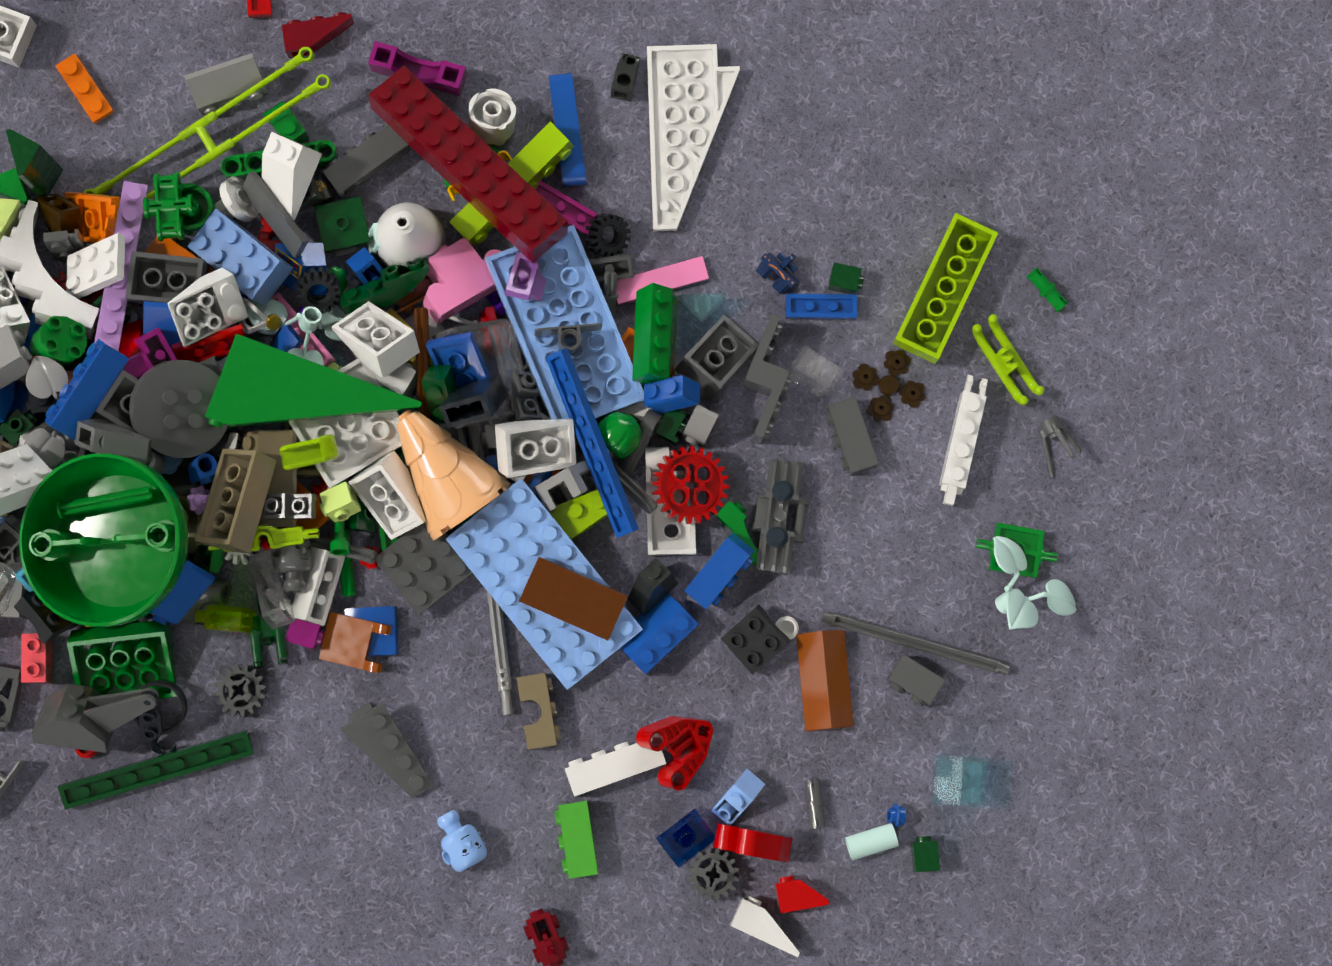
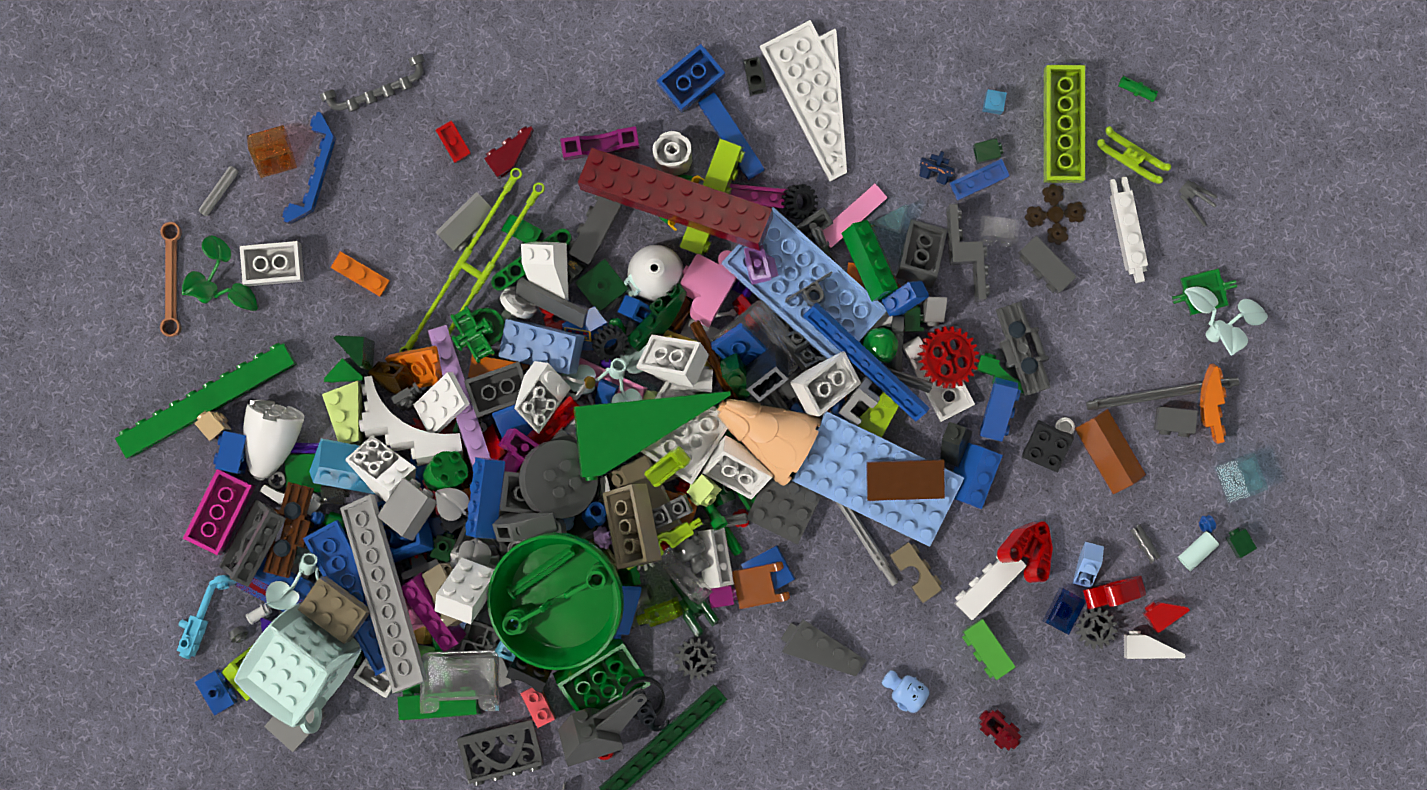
camera: 20 degrees left, 5 degrees up
(553, 45) = (691, 78): none -> blue brick
(878, 228) = (994, 102): none -> dark azure brick
(969, 670) = (1211, 396): none -> orange slope

